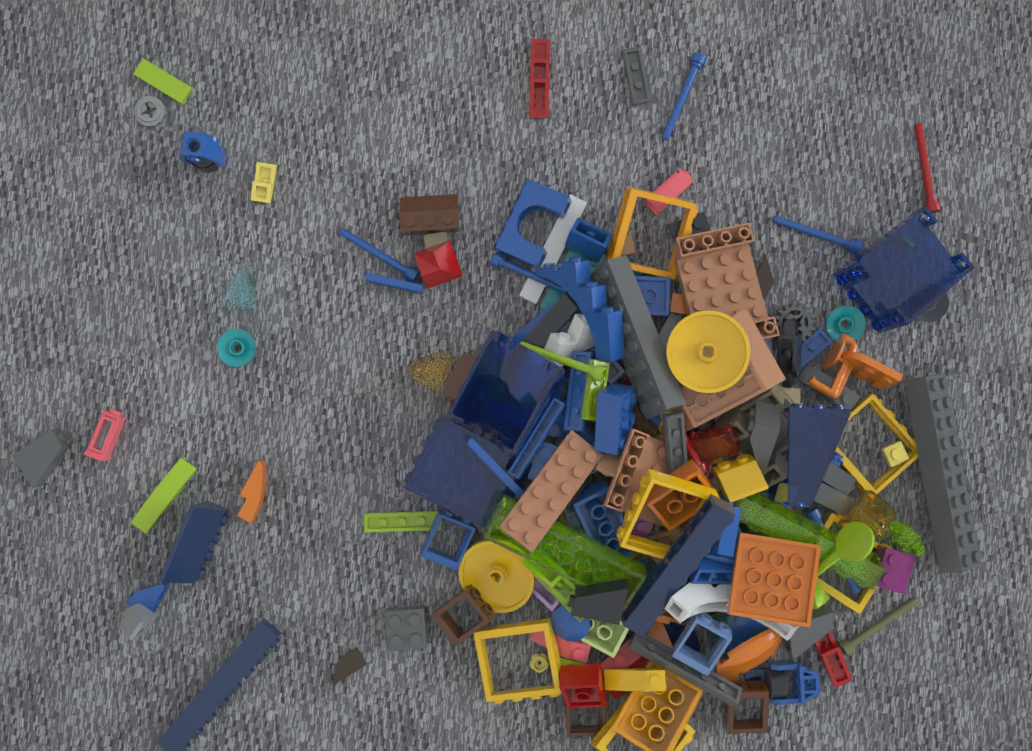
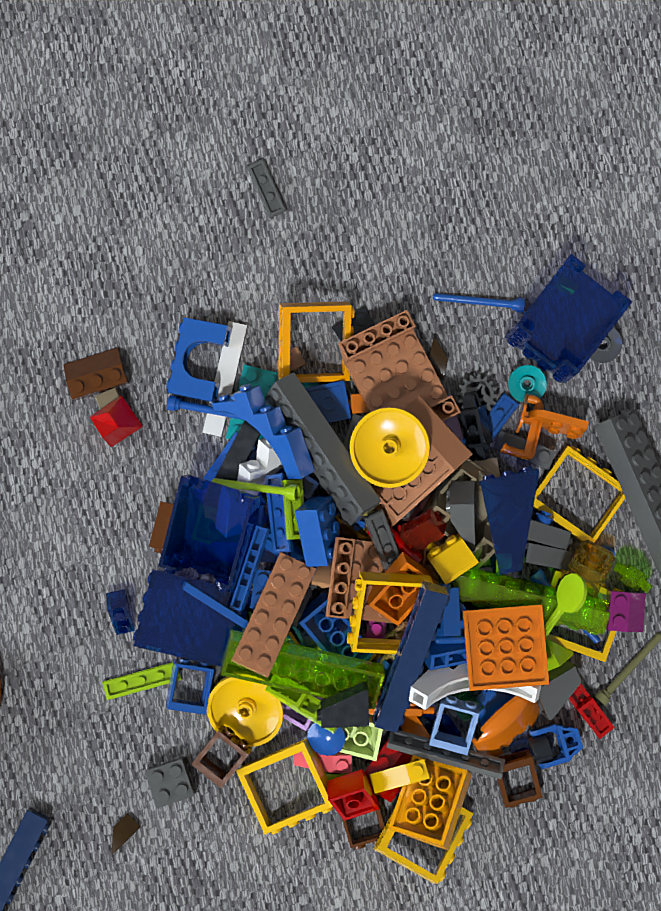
camera: 10 degrees left, 0 degrees up
(394, 283) = (77, 450): blue tile -> none
(397, 449) = (120, 612): none -> clear blue slope
(409, 272) = (89, 436): blue piece -> none
(432, 369) = (134, 526): clear yellow slope -> none
(539, 78) = (171, 214): red slope -> none
(539, 667) = (307, 790): light yellow plate -> none
(588, 239) = (256, 361): blue slope -> none
(671, 187) = (326, 291): coral window -> none
(697, 61) = (322, 161): blue piece -> none
(894, 453) = (602, 498): light yellow plate -> none
(931, 203) = (584, 245): red piece -> none

